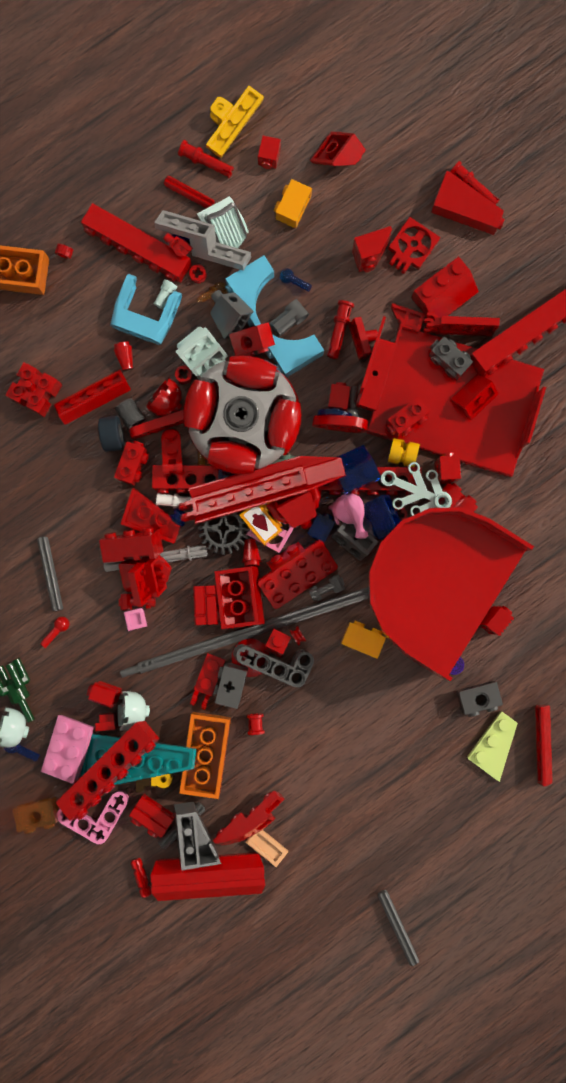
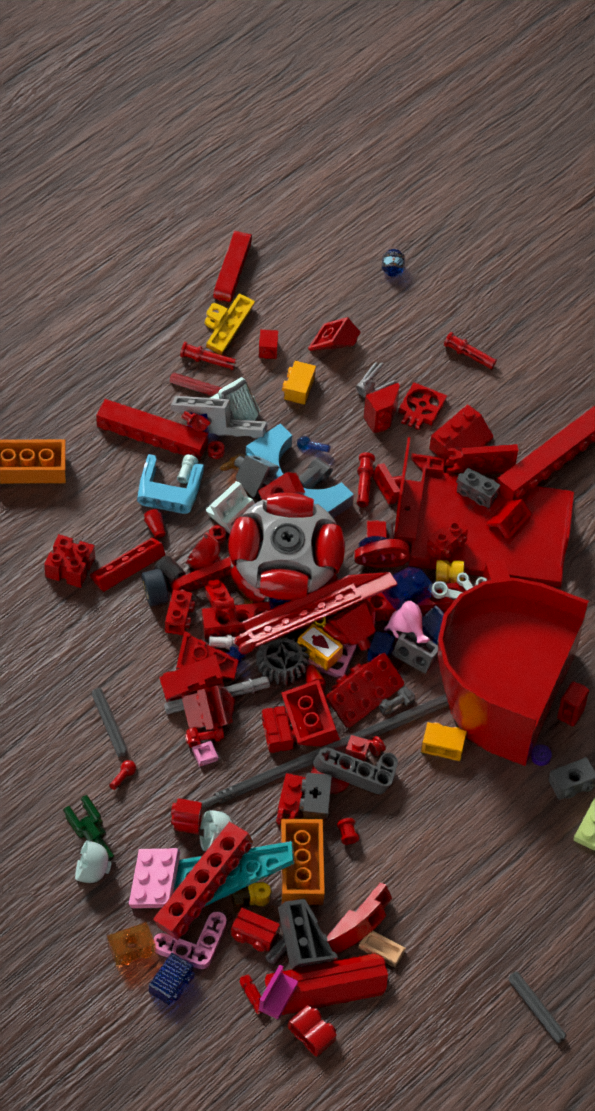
camera: 15 degrees left, 30 degrees down
(23, 751) = (97, 885): clear blue bar -> none
(64, 251) = (80, 443): red axle -> none
(65, 857) = (171, 978): none -> clear blue brick
(107, 721) = (192, 847): red piece -> none
(159, 895) = (277, 994): none -> dark pink panel
(188, 925) = (312, 1030): none -> red brick
(248, 48) = (232, 266): none -> red beam
(360, 215) = (366, 385): none -> light grey plant
(415, 63) = (393, 262): none -> head
(467, 206) = (466, 367): red slope -> none

